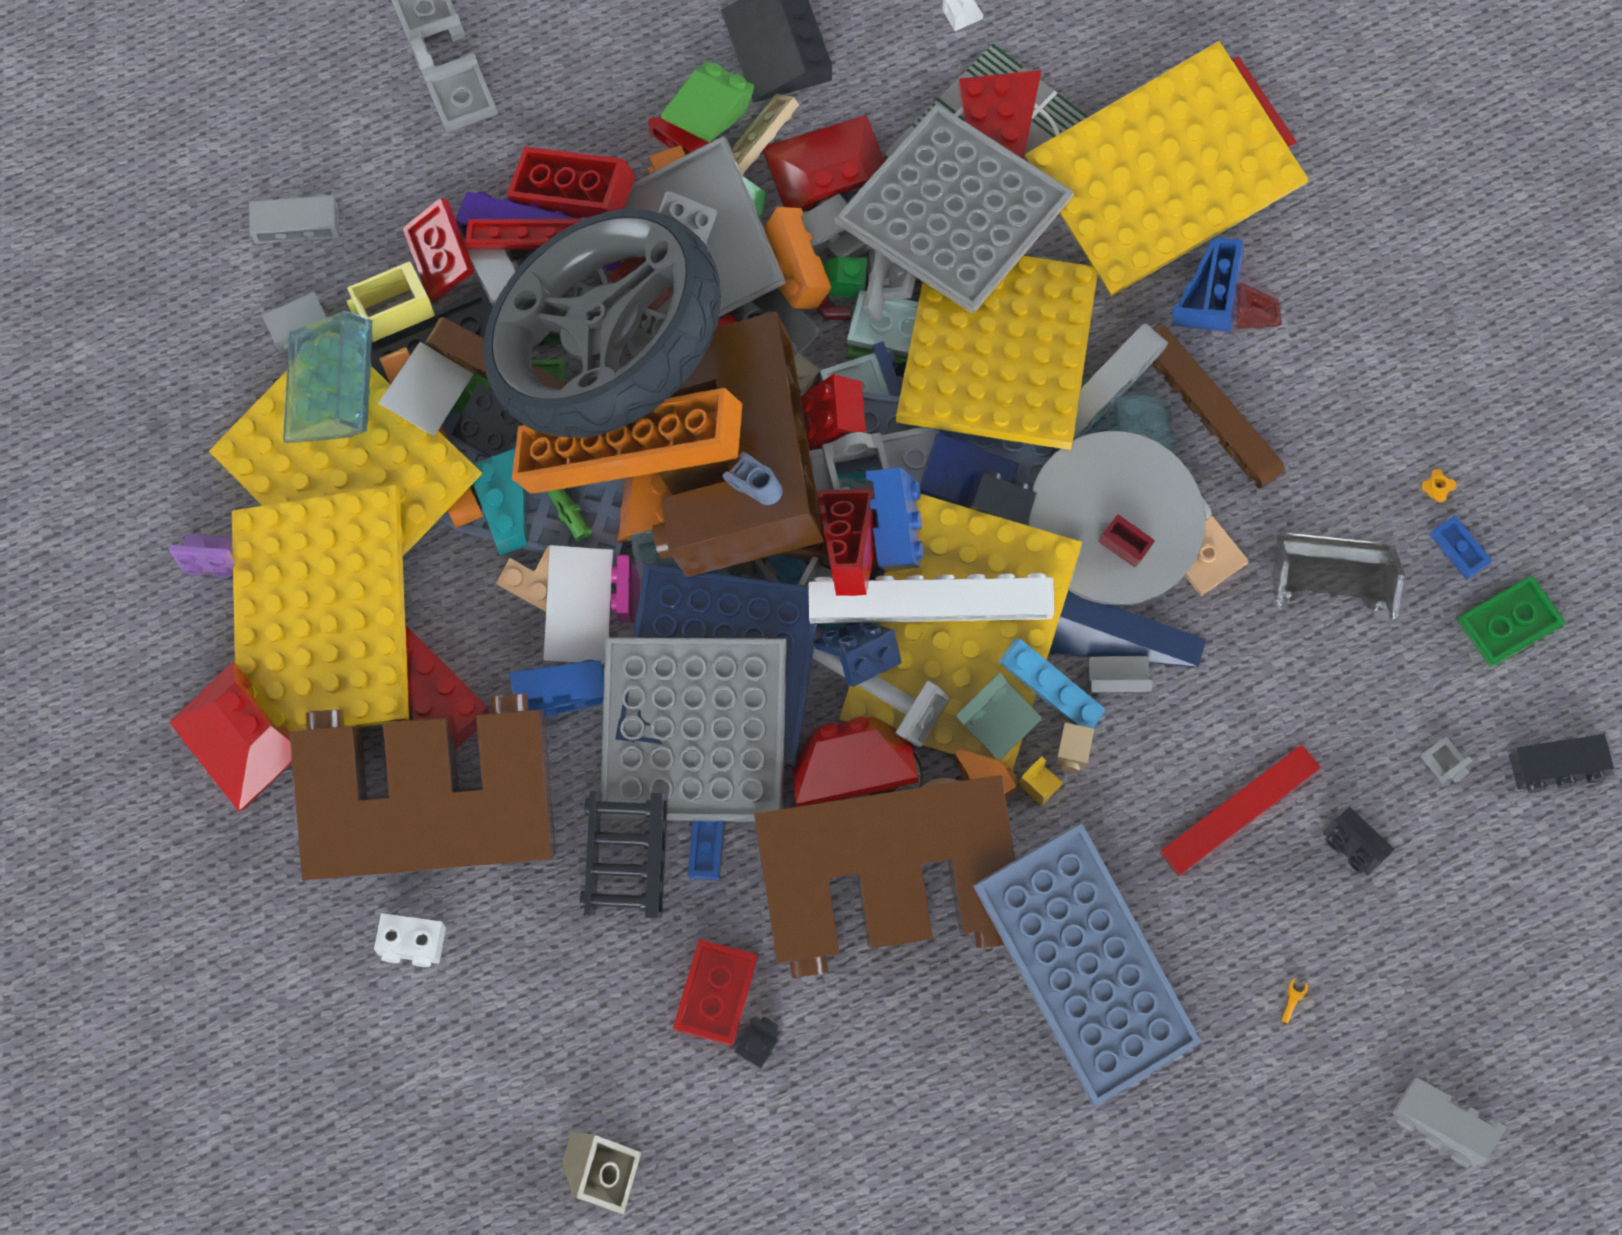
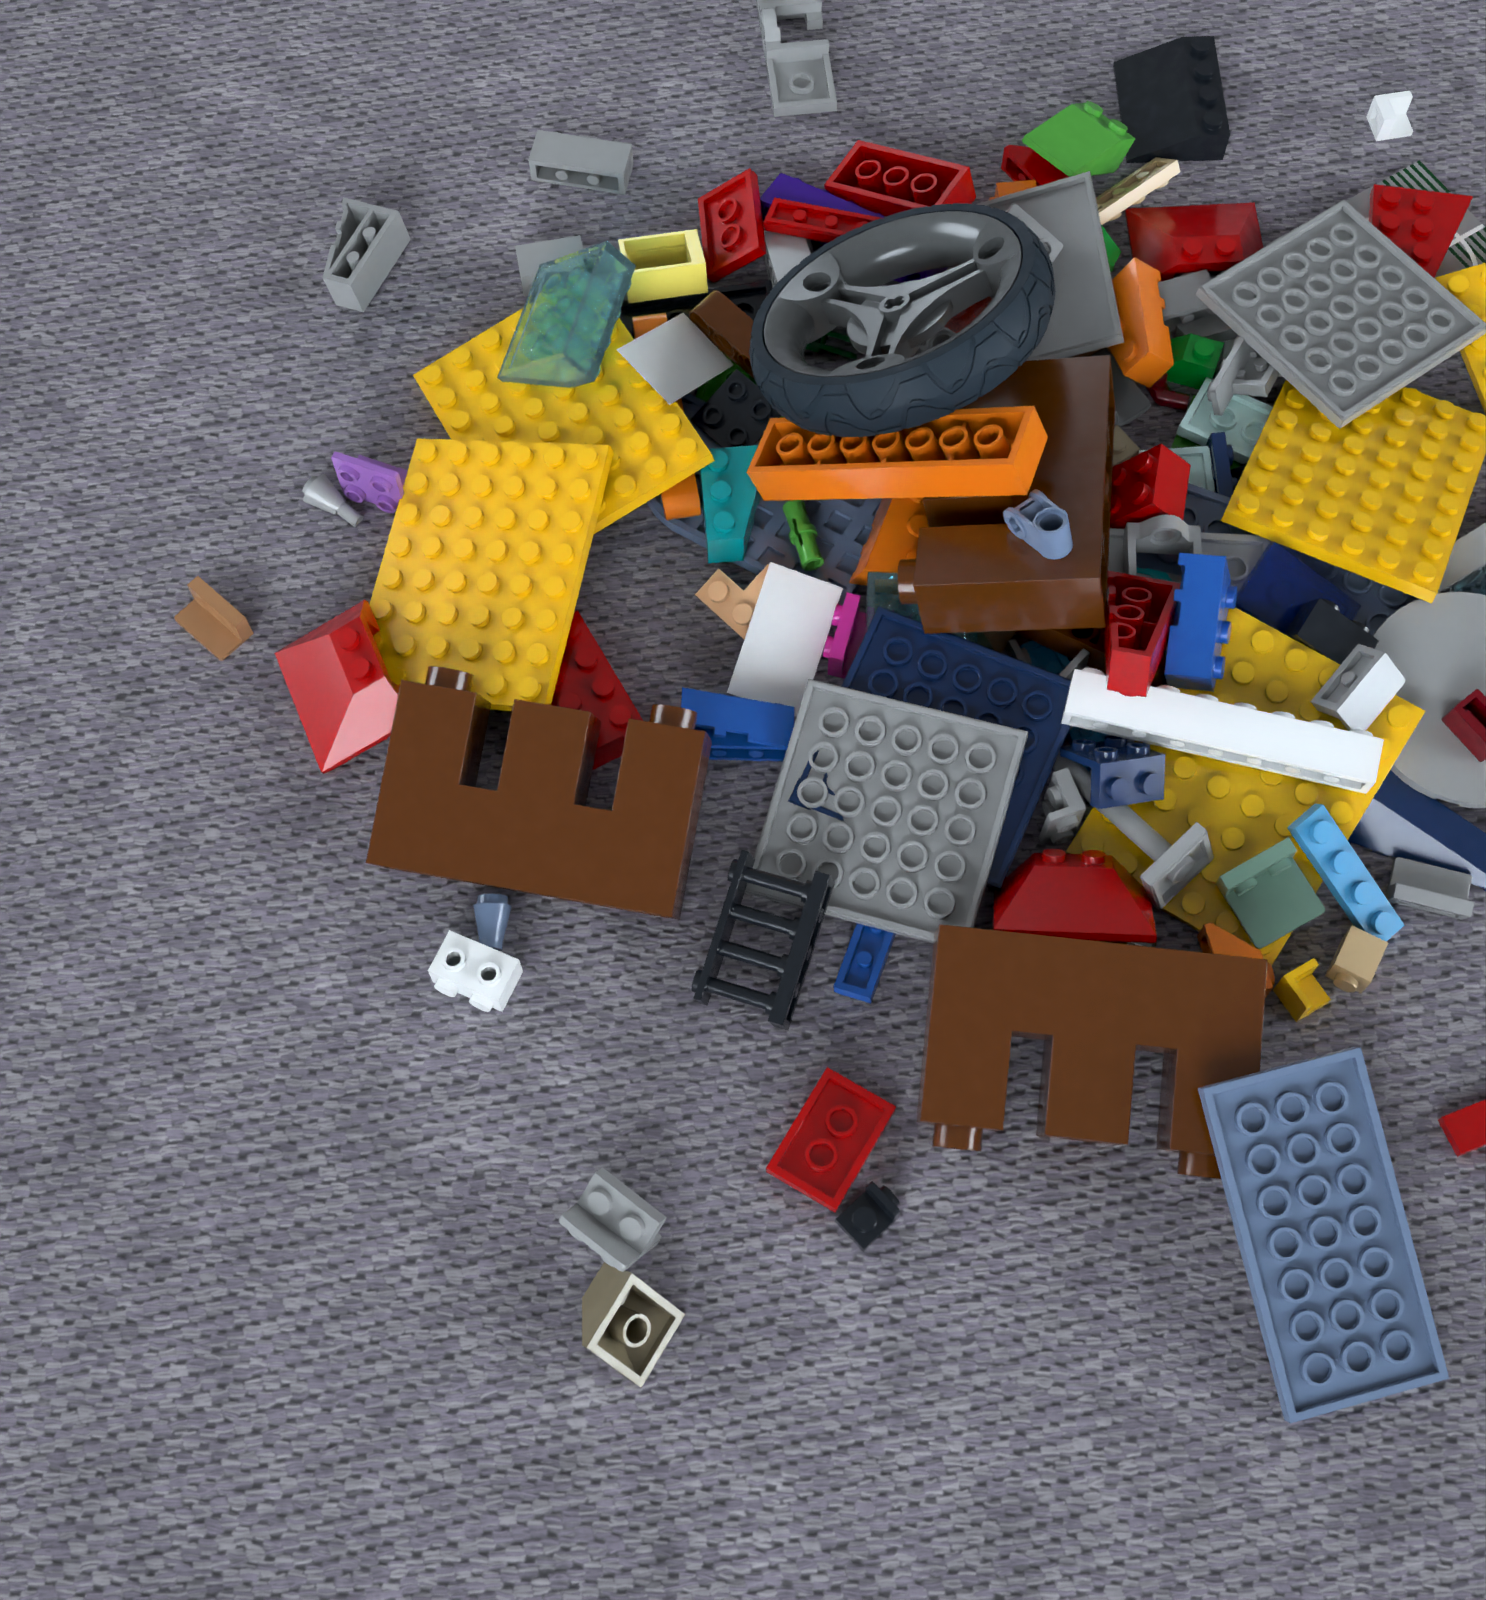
camera: 15 degrees right, 5 degrees down
(110, 709) = (213, 620): none -> medium nougat panel
(134, 352) = (363, 253): none -> light grey wedge
(168, 577) = (323, 494): none -> light grey cone
(410, 894) = (492, 919): none -> sand blue cone
(570, 1100) = (614, 1221): none -> light grey bracket
(828, 689) = (1062, 809): none -> light grey bracket
(1028, 539) = (1360, 688): none -> panel

